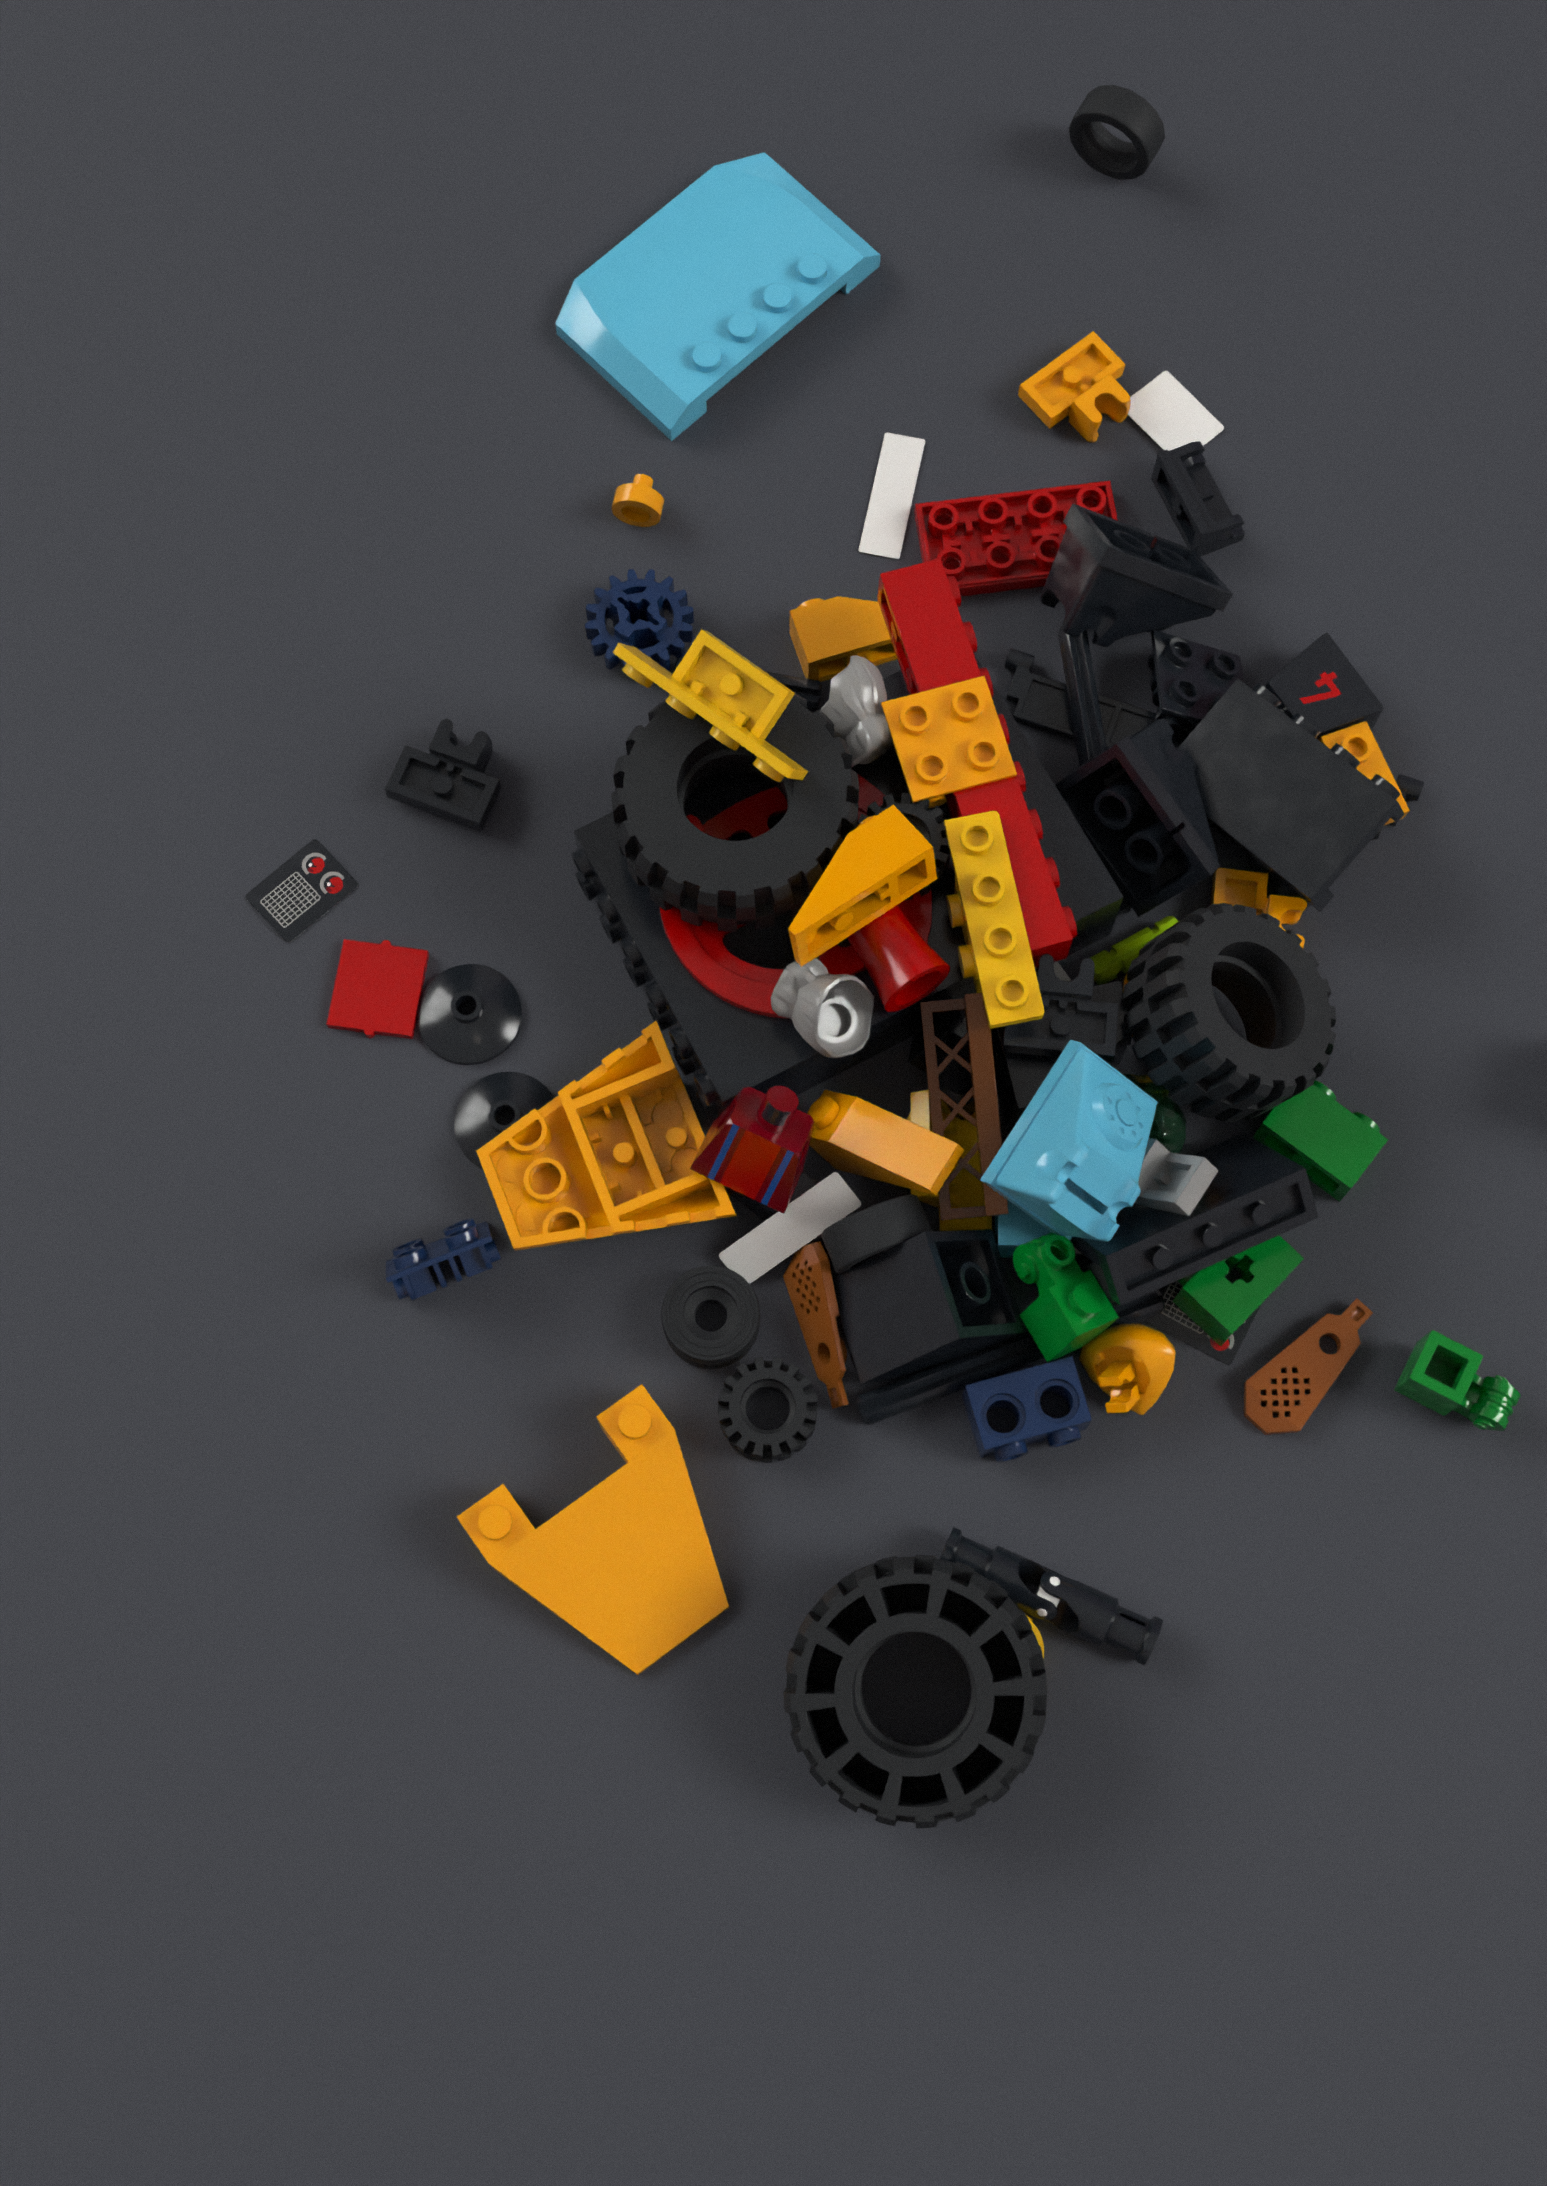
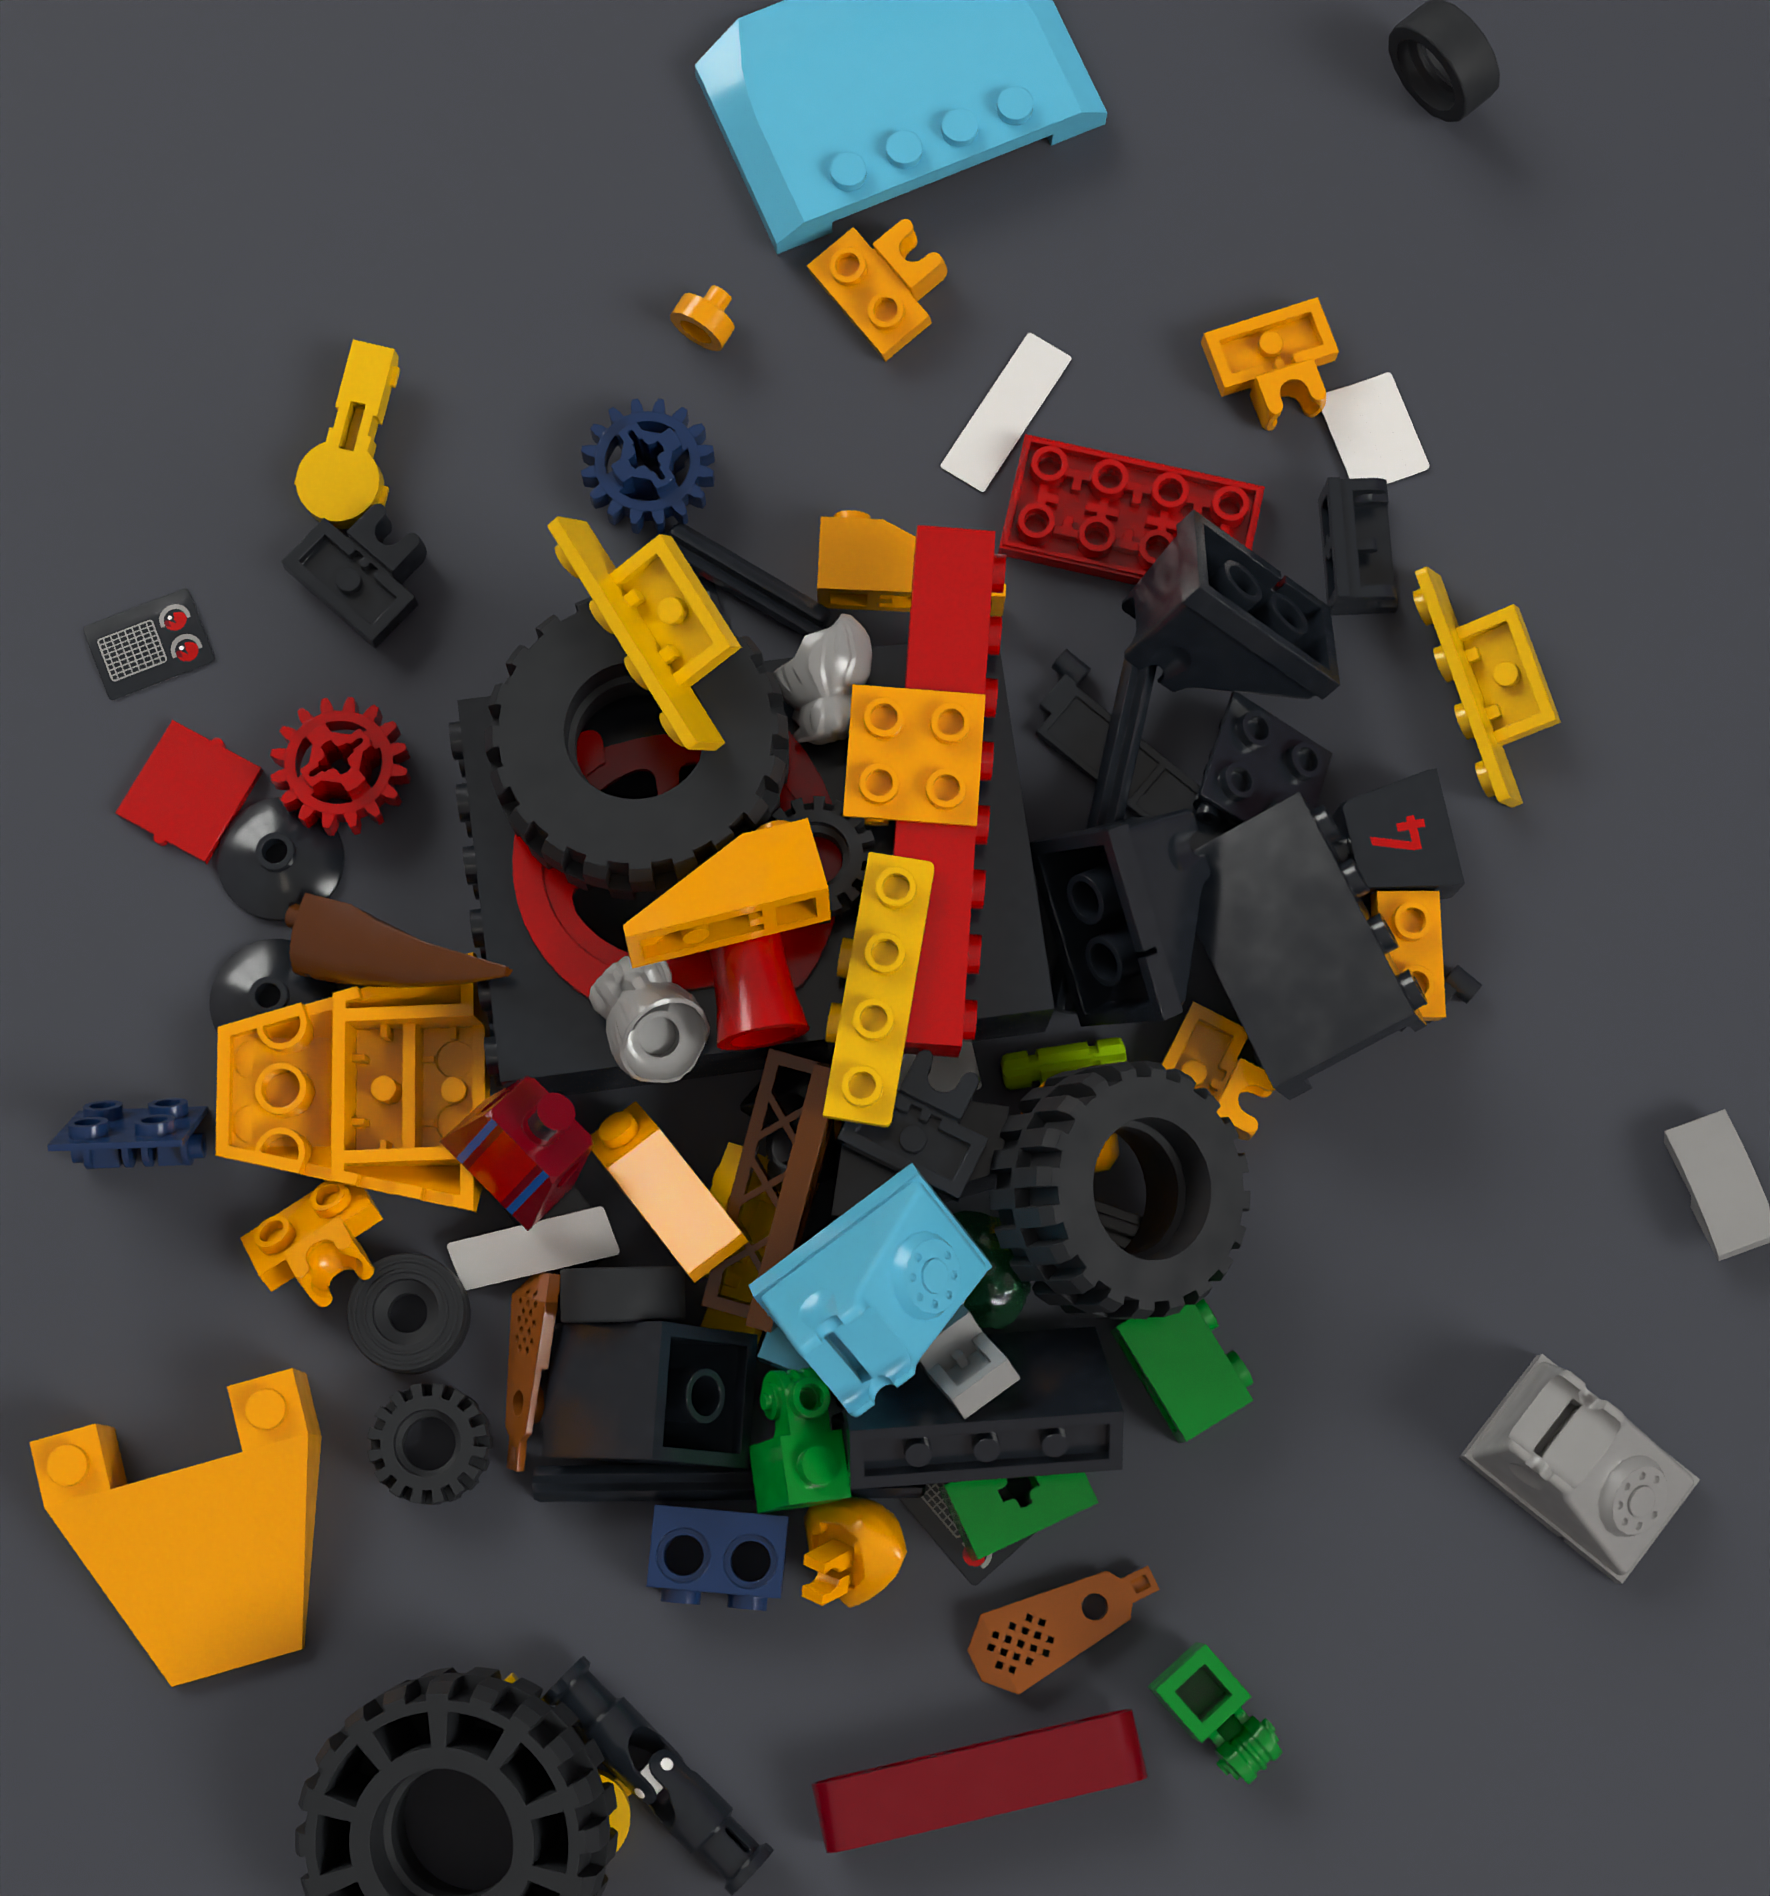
camera: 15 degrees right, 5 degrees up
(404, 709) = (340, 475): none -> yellow piece
(495, 946) = (322, 781): none -> red gear
(561, 1049) = (353, 947): none -> reddish brown piece
(616, 1284) = (314, 1240): none -> light orange plate
(761, 434) = (879, 286): none -> light orange plate
(1297, 1506) = (979, 1780): none -> dark red beam
(1342, 555) = (1495, 678): none -> yellow bracket

